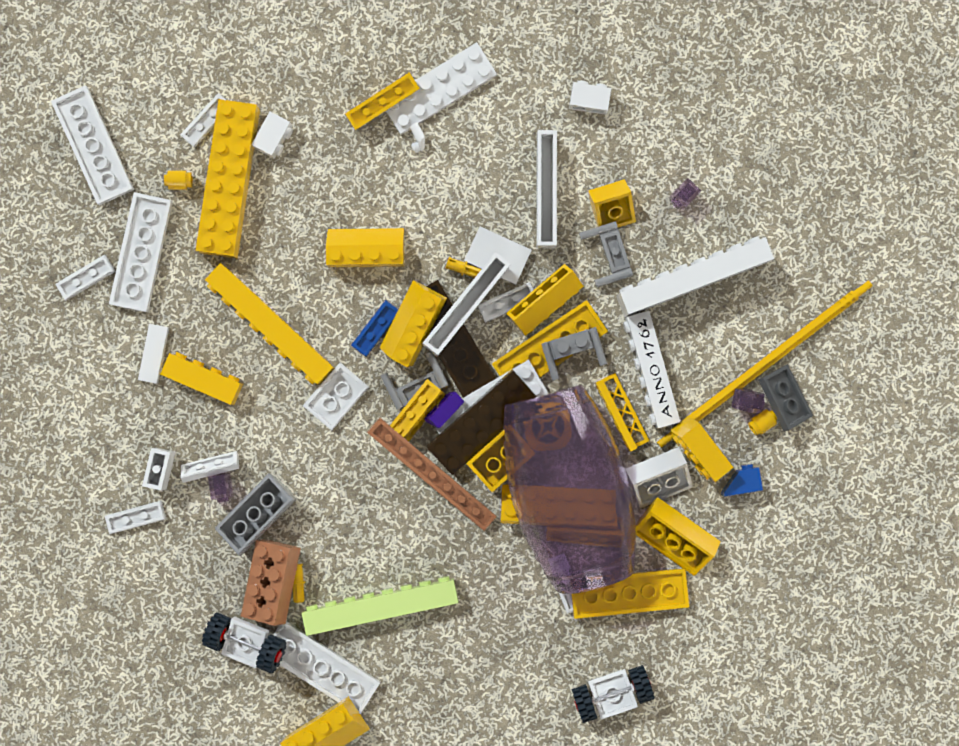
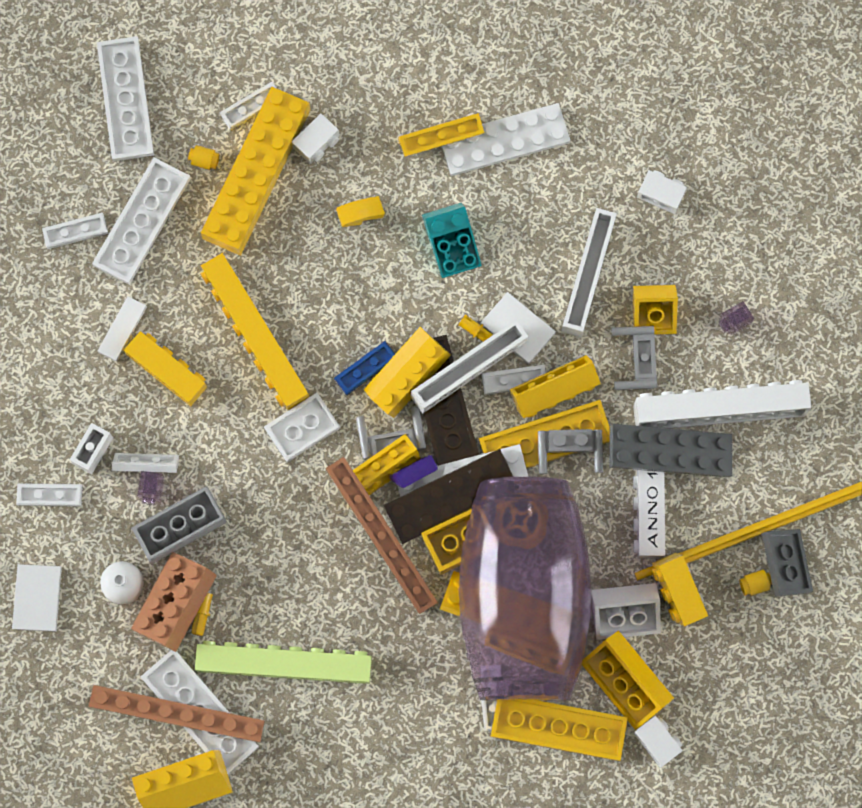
camera: 20 degrees right, 10 degrees down
(152, 609) = (37, 598): none -> white tile
(221, 575) = (122, 582): none -> white cylinder
(244, 642) = (126, 657): plate -> none
(302, 676) = (176, 713): none -> nougat plate
(330, 189) = (359, 211): none -> yellow slope
(365, 247) = (379, 281): yellow slope -> none
(418, 192) = (452, 239): none -> teal slope
(419, 145) = (470, 183): white arm -> none
(615, 414) = (598, 535): yellow fence -> none
(660, 329) = (670, 450): none -> dark grey plate
(717, 582) = (658, 741): none -> white brick
(743, 481) = (718, 641): blue slope -> none
(748, 400) = (745, 553): clear purple brick -> none

